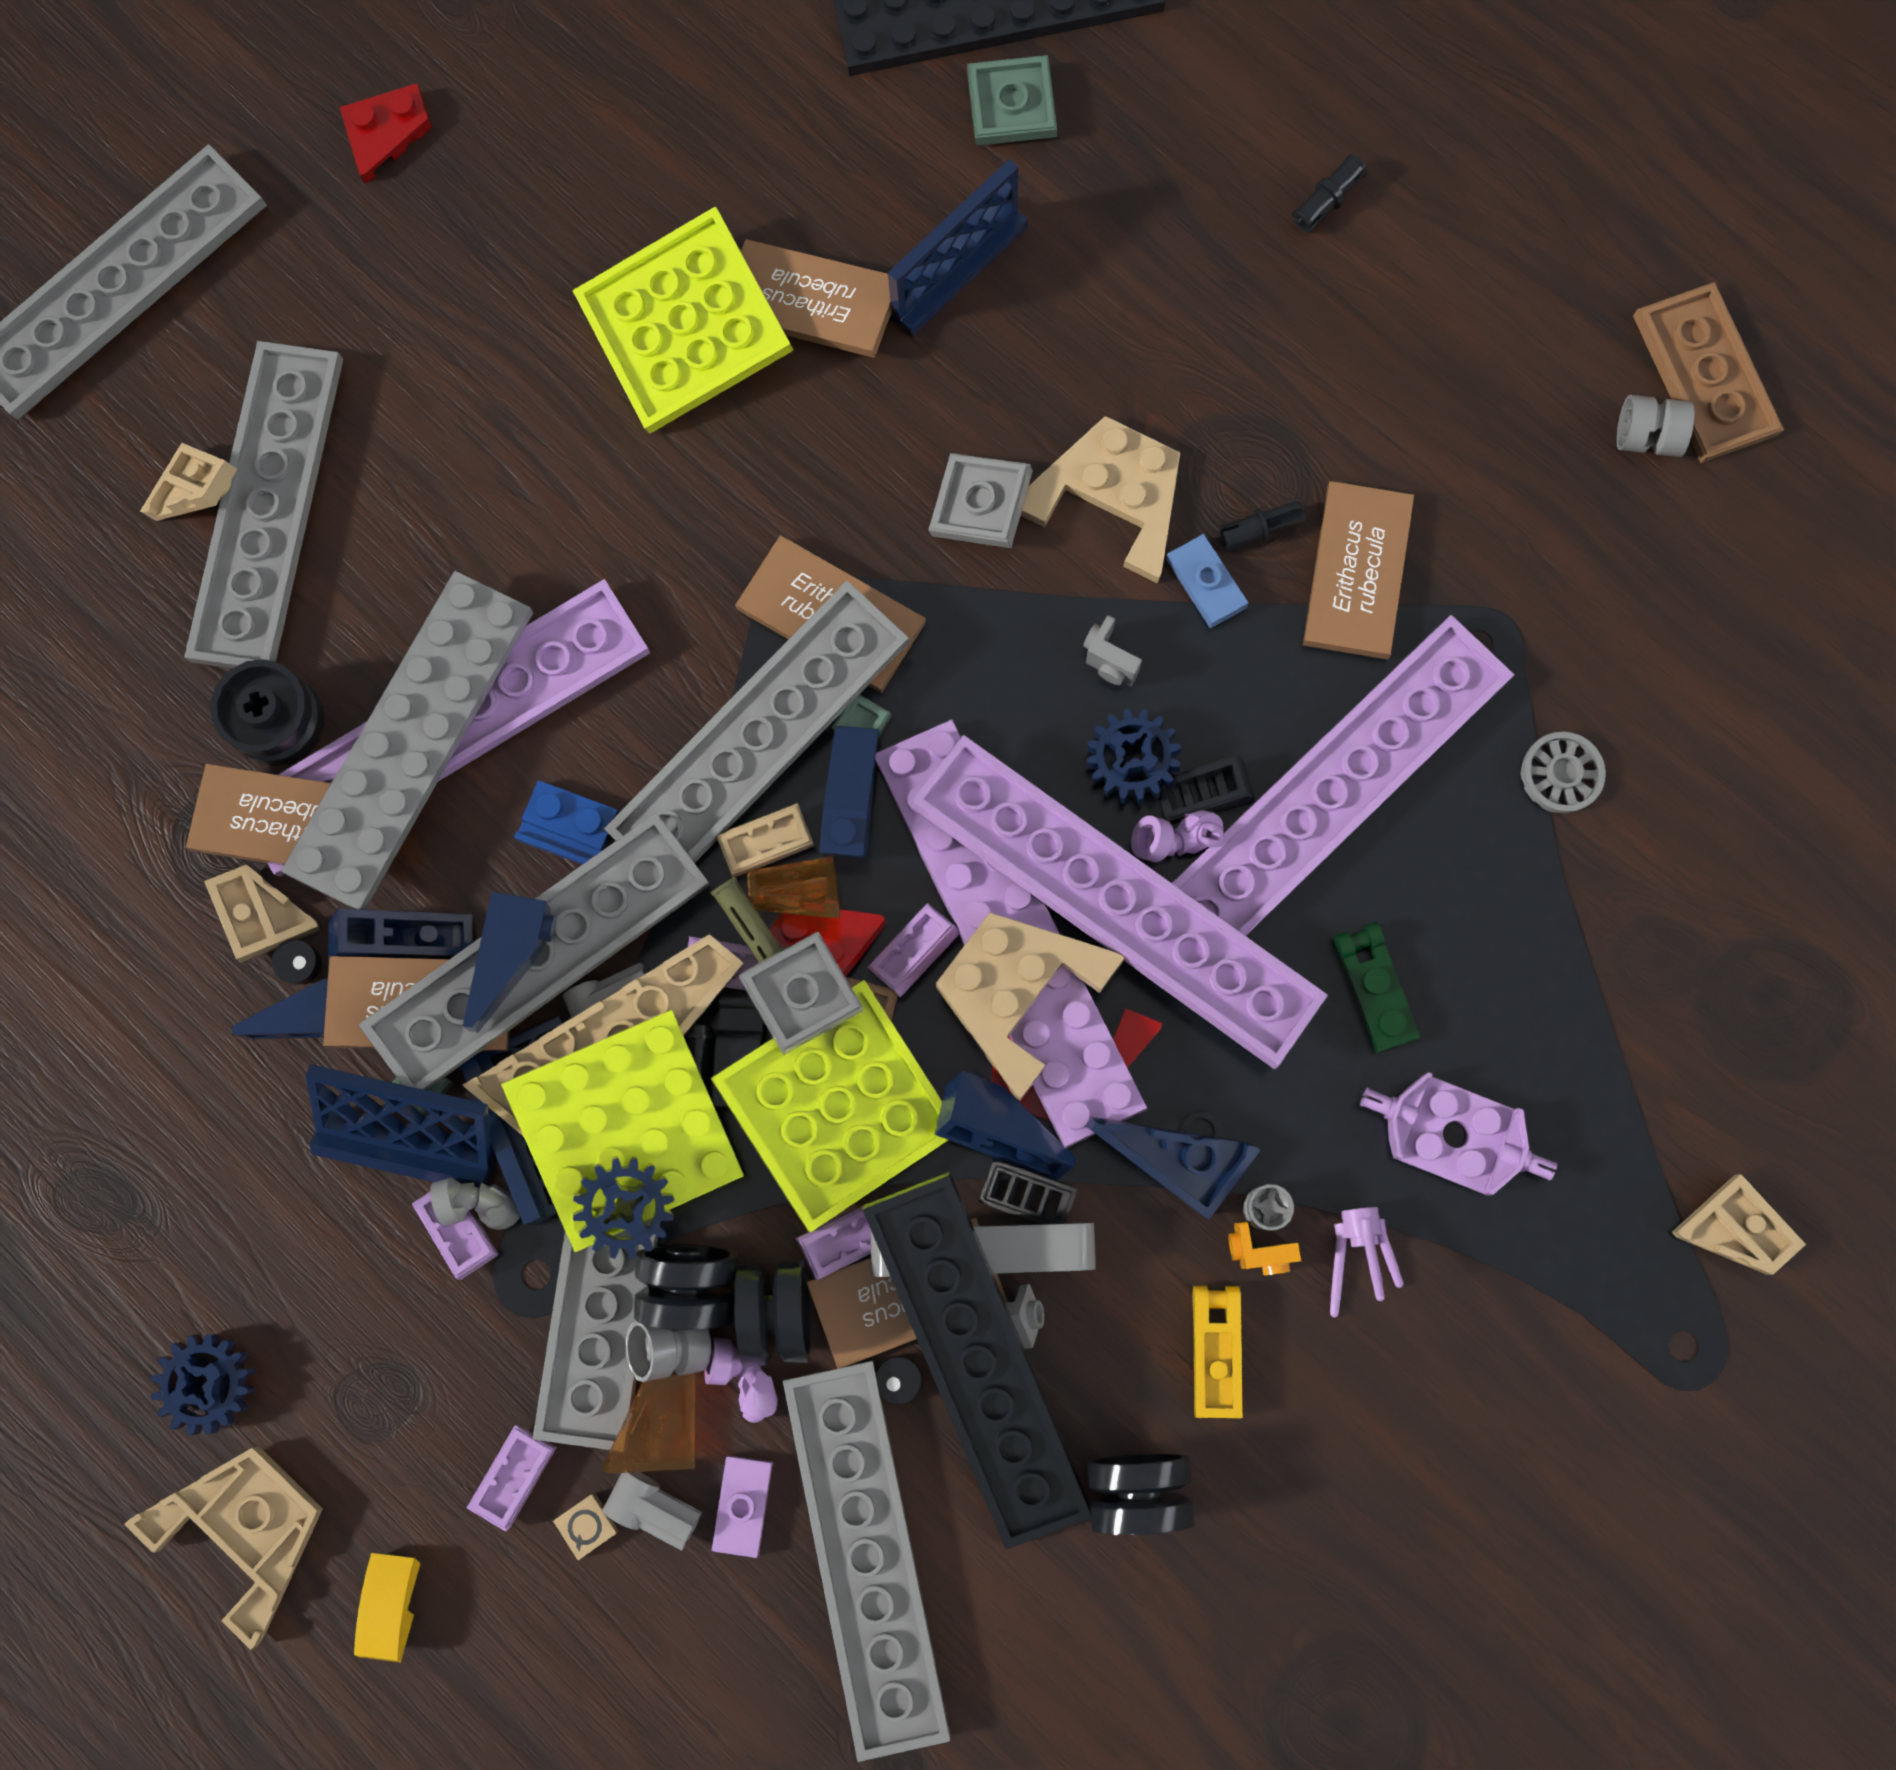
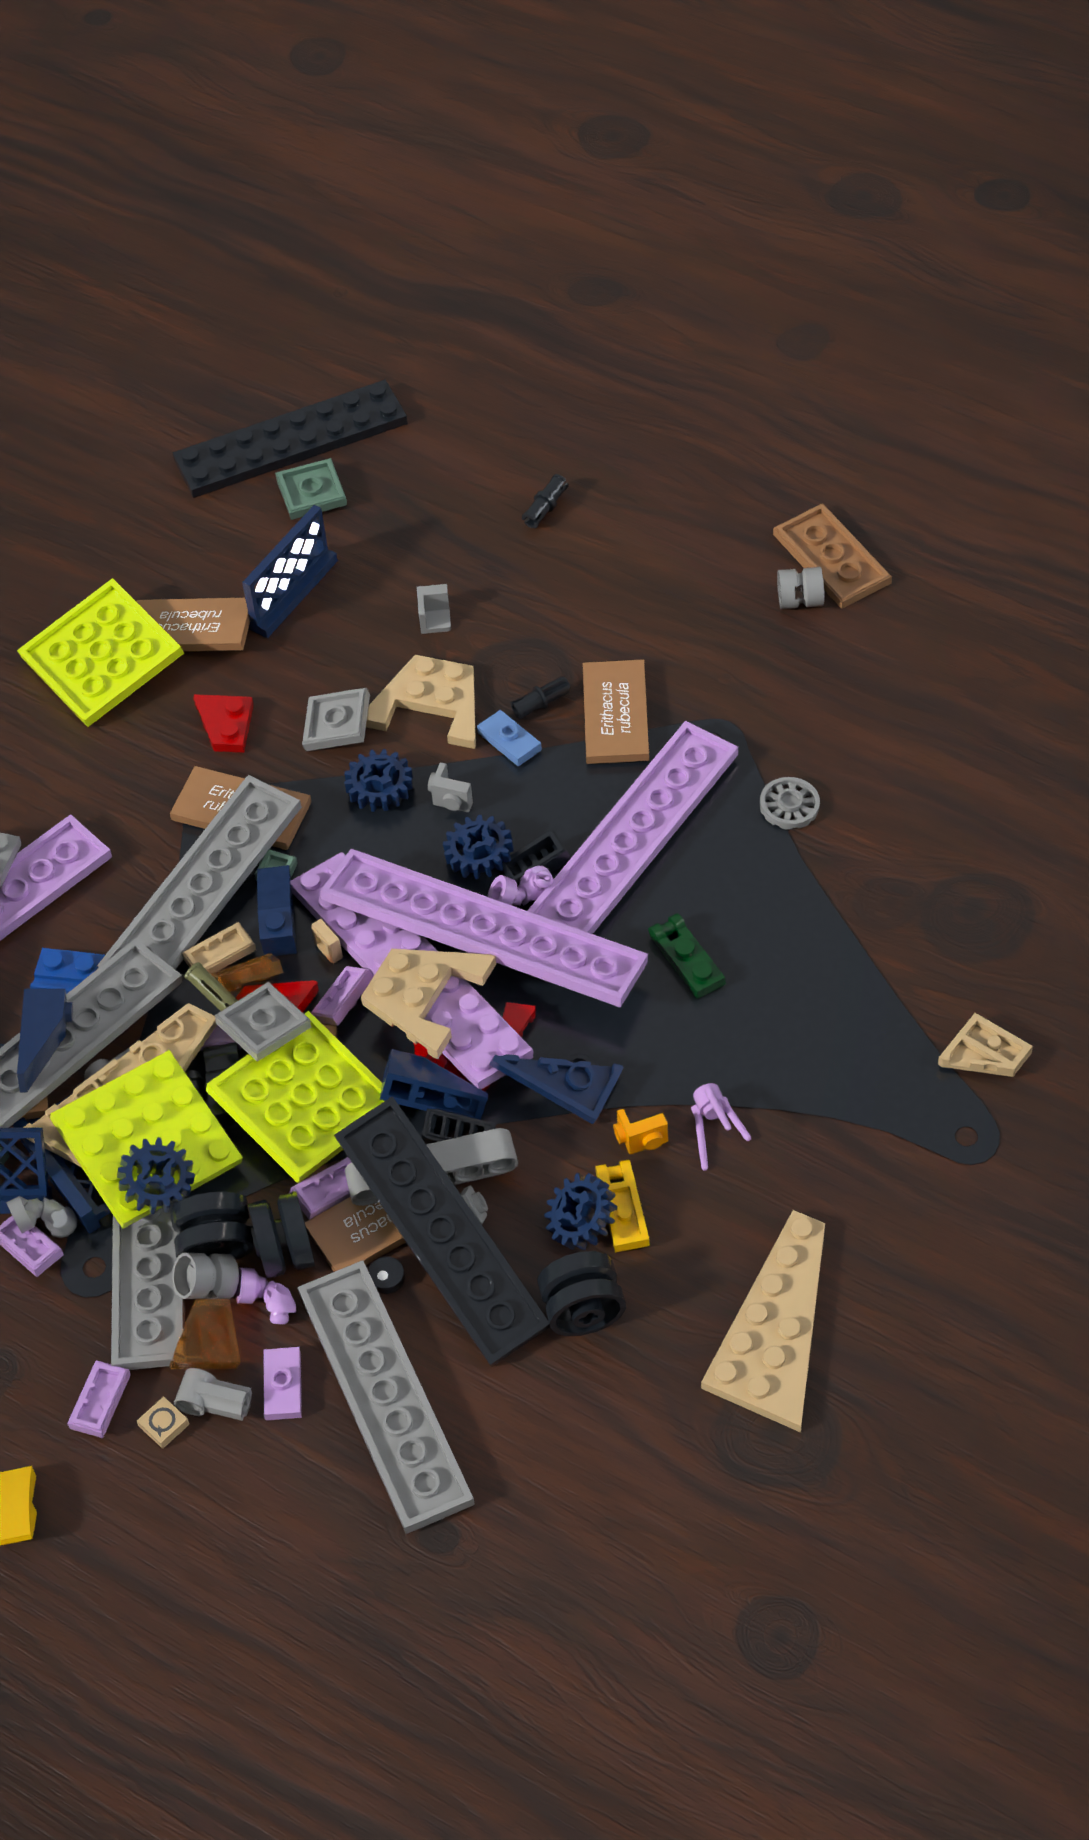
camera: 15 degrees left, 25 degrees down
(833, 465) = (225, 720): none -> red wing
(907, 860) = (326, 941): none -> tan tile
(1006, 625) = (378, 780): none -> dark blue gear
(1144, 345) = (433, 608): none -> light grey panel
(1145, 1344) = (580, 1211): none -> dark blue gear
(1273, 1203) = (638, 1100): light grey wheel -> none
(1366, 1591) = (770, 1340): none -> tan wing
(1494, 1141) = (740, 1021): lavender plate -> none

